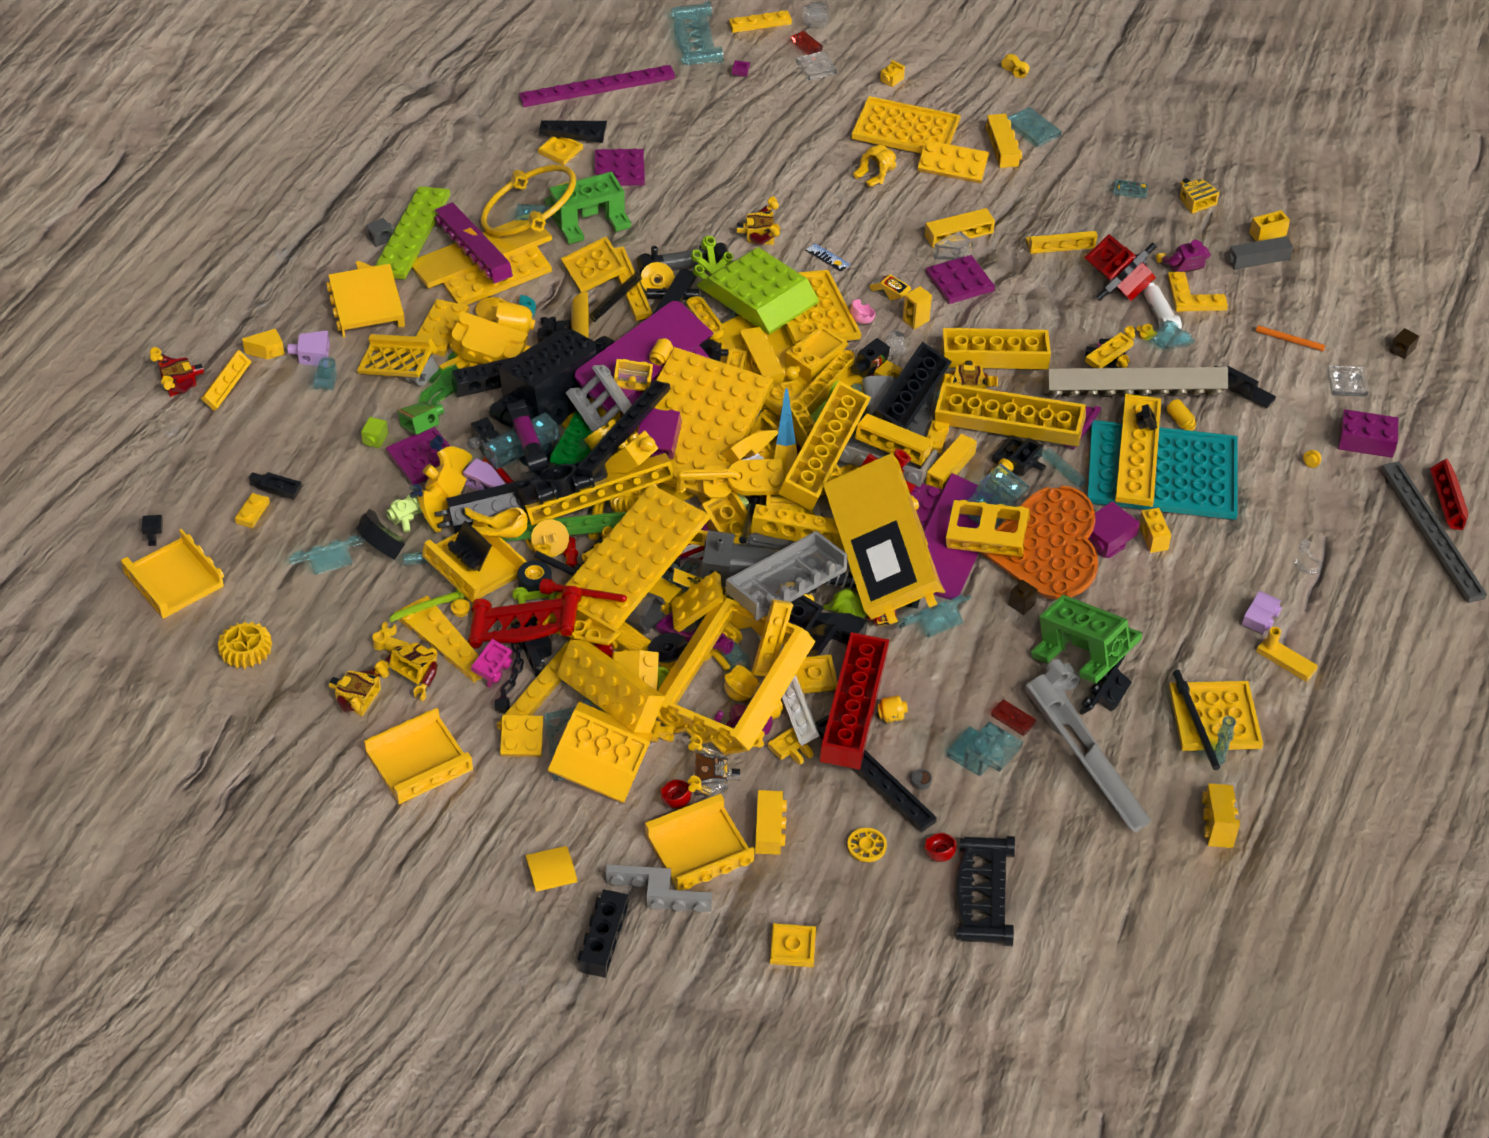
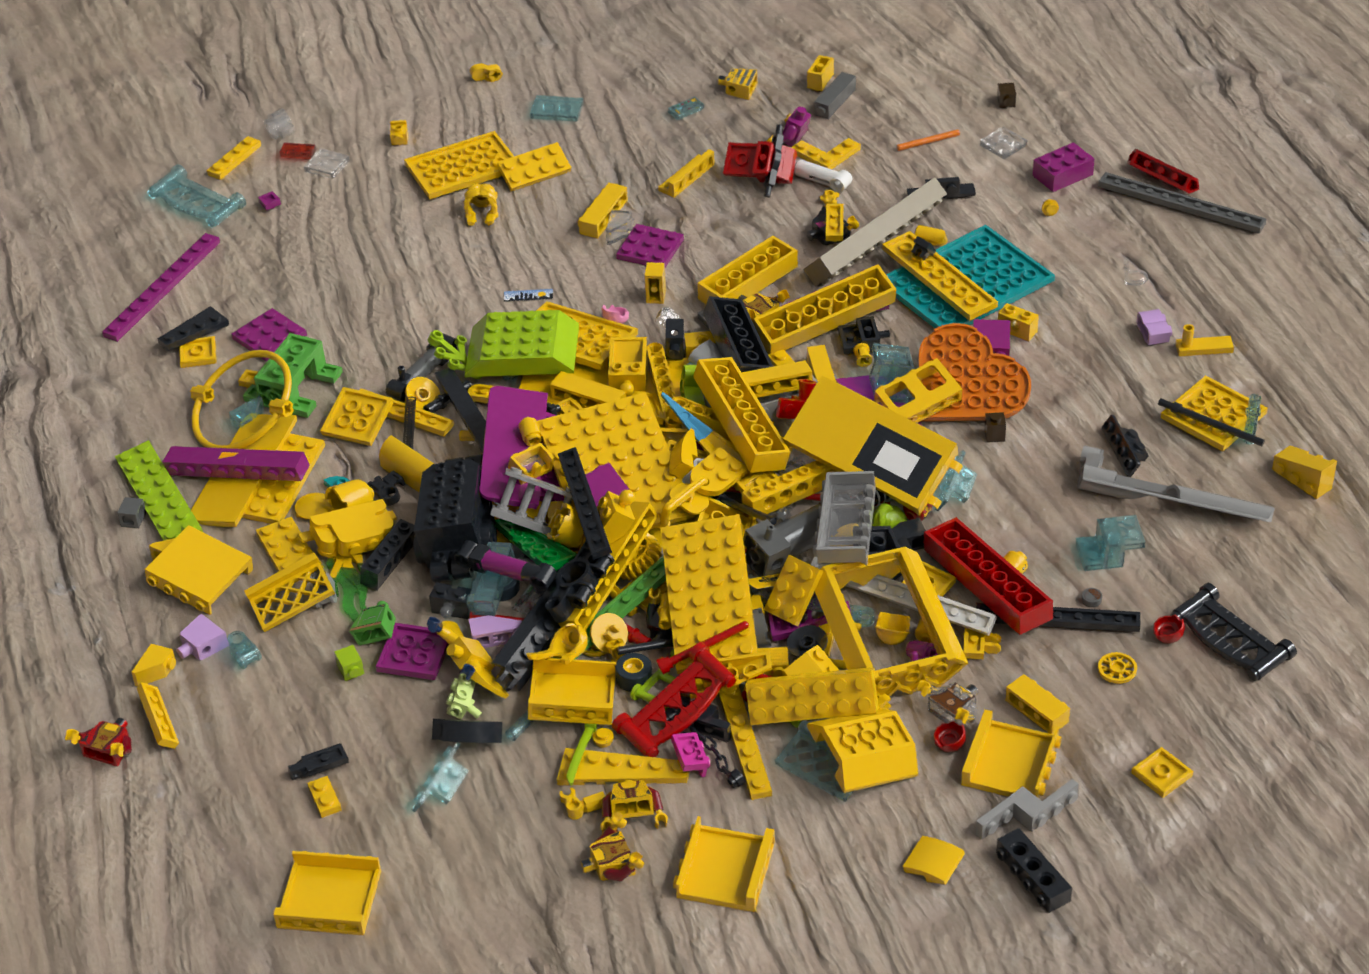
camera: 40 degrees left, 5 degrees down
(151, 525) = (256, 871): black plate -> none
(244, 644) = (468, 891): yellow gear -> none
(470, 546) = (568, 678): black hinge -> none
(521, 736) = (784, 787): yellow plate -> none
(760, 225) = (452, 304): torso -> none
(772, 636) = (888, 571): yellow plate -> none
(893, 287) = (615, 281): slope -> none
(1003, 140) = (550, 129): yellow brick -> none
(1013, 717) = (1092, 511): clear red plate -> none
(1064, 467) = (900, 324): clear light blue axle -> none
(1089, 628) = (1075, 408): bright green piece -> none
(1171, 337) = (854, 187): clear light blue slope -> none

